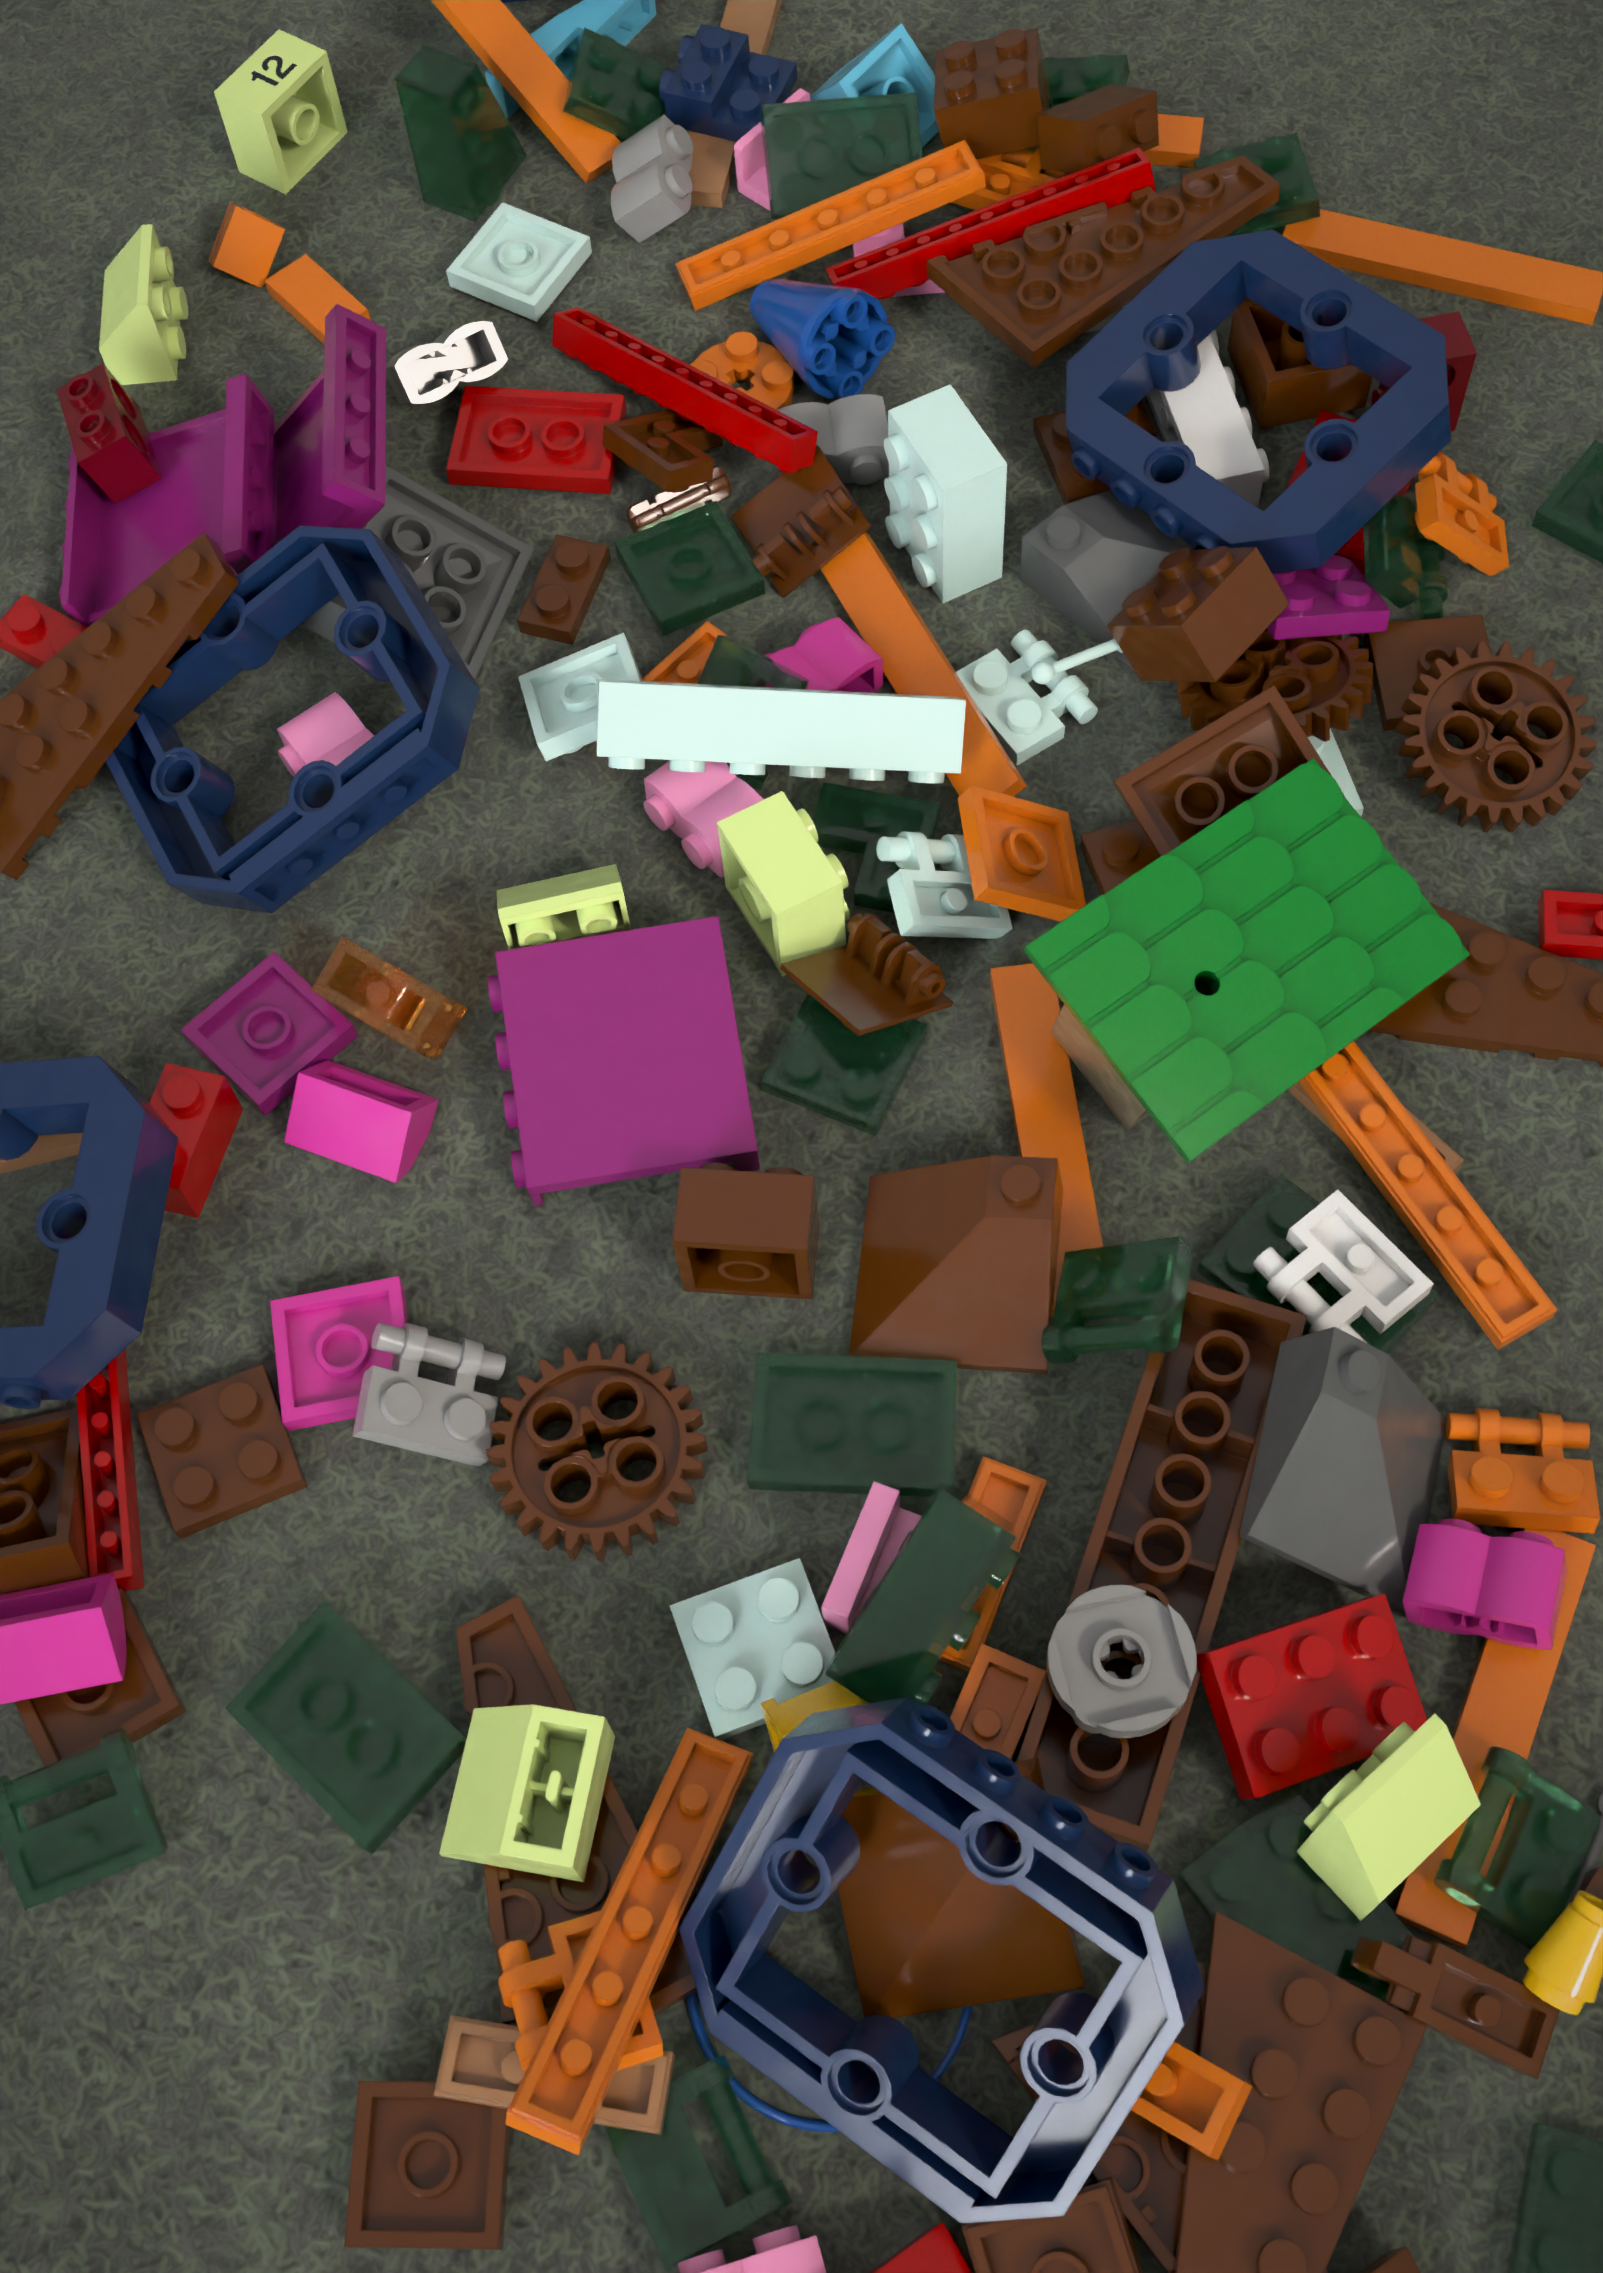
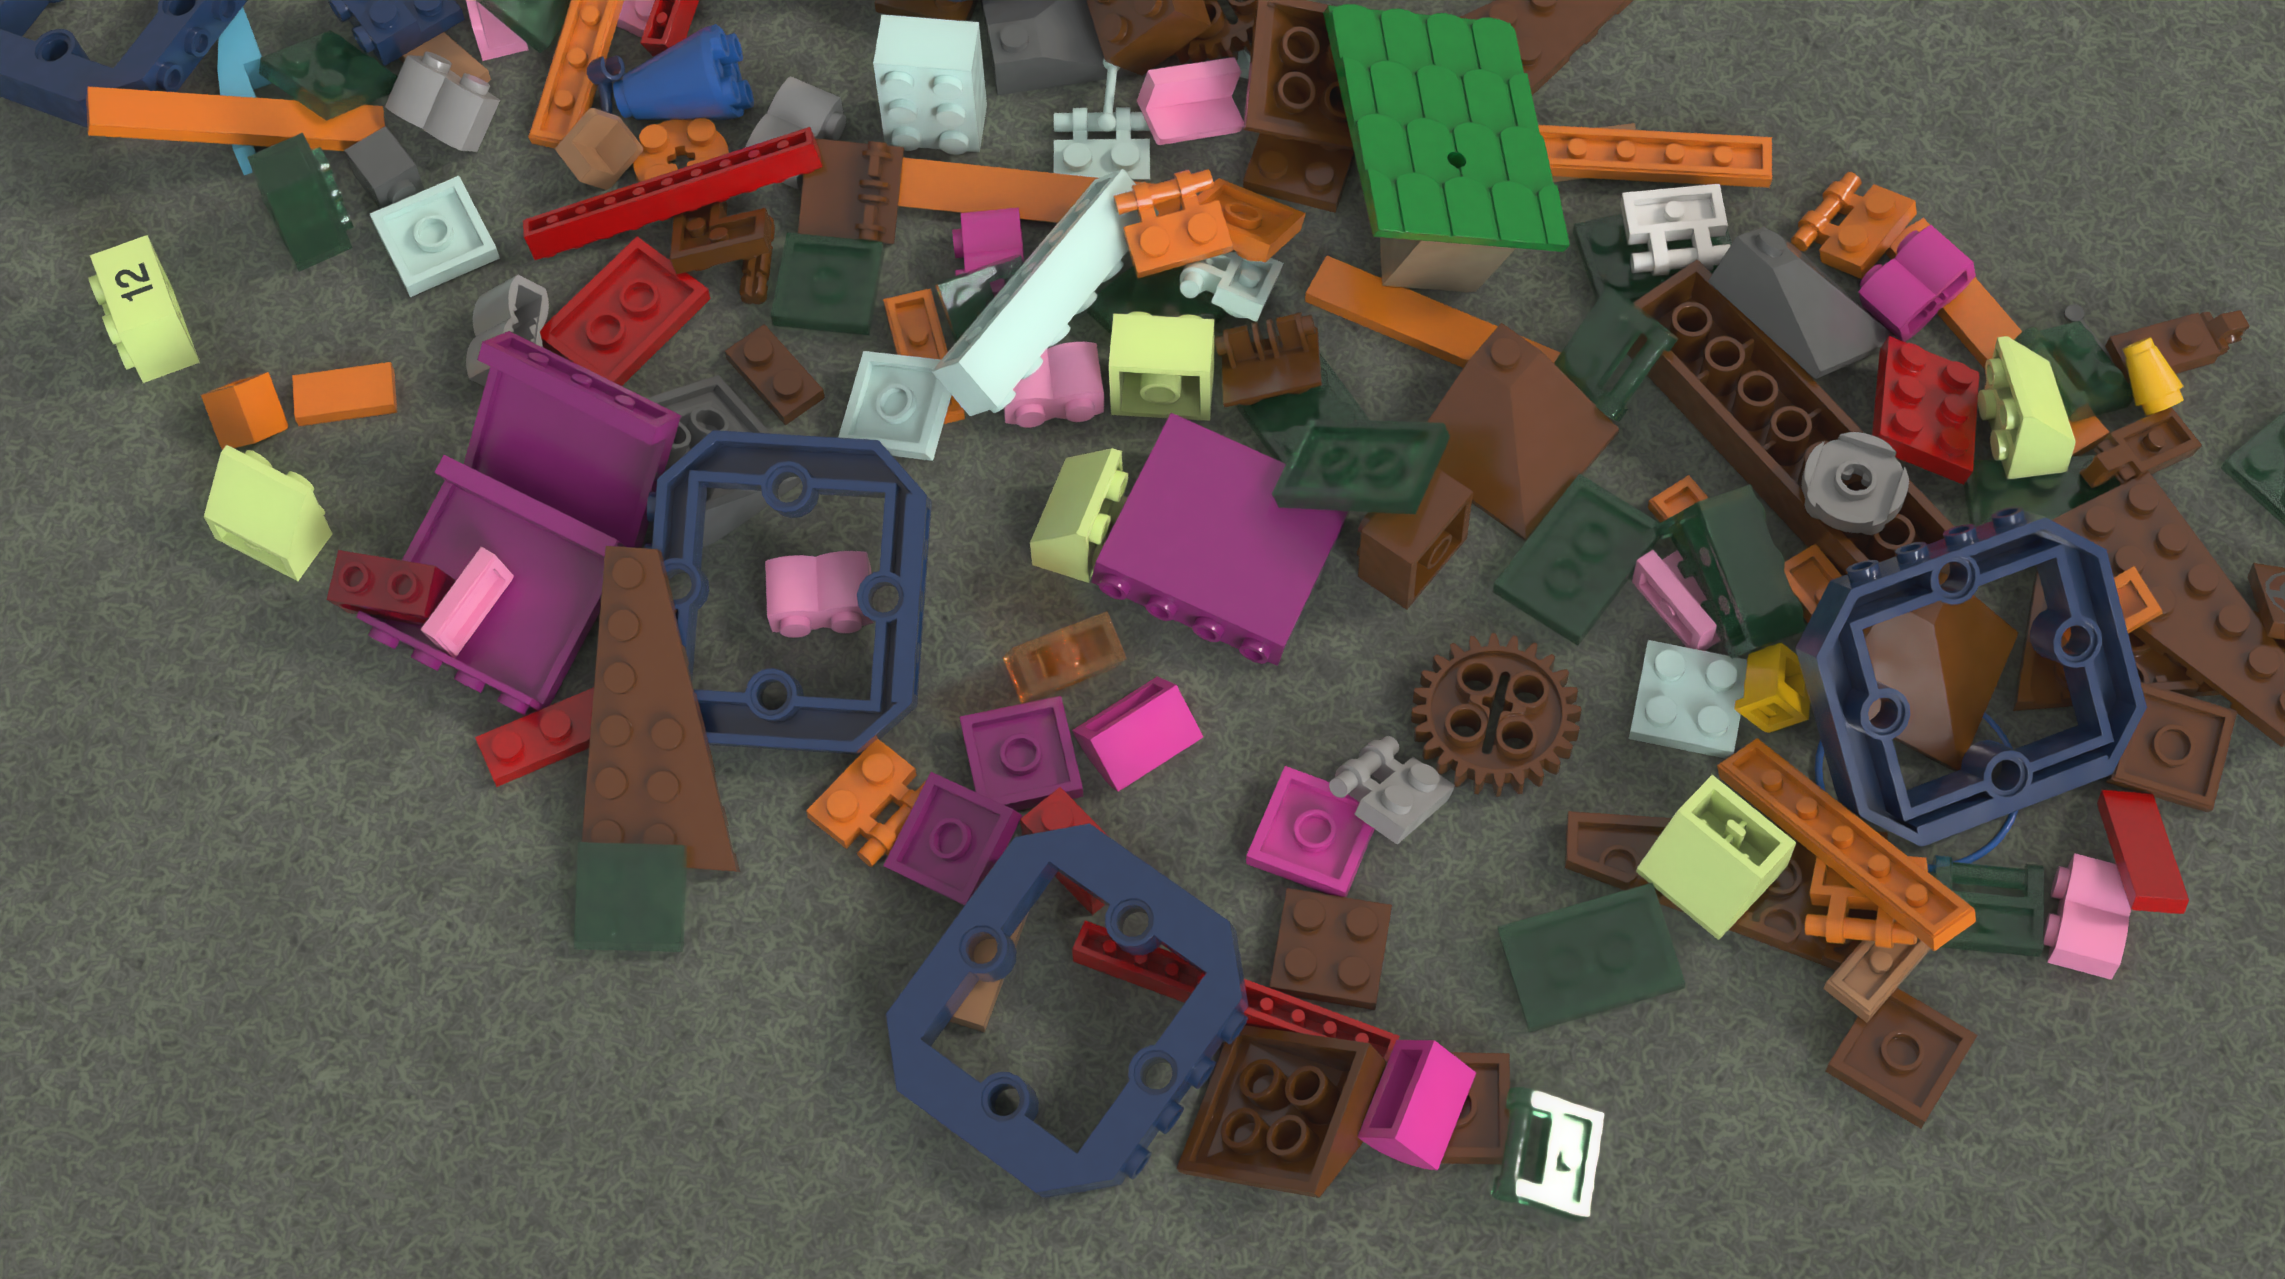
camera: 60 degrees left, 0 degrees up
(131, 494) = (467, 602): none -> bright pink tile
(131, 1018) = (951, 839): none -> magenta plate
(147, 926) = (861, 795): none -> orange plate
(558, 184) = (384, 168): none -> dark grey brick
(692, 311) = (599, 148): none -> medium nougat panel
(762, 1123) = (1361, 465): none -> clear green plate
(767, 274) = (603, 75): none -> dark blue hand
(928, 798) = (1178, 237): none -> orange plate
(1125, 723) = (1191, 101): none -> bright pink panel

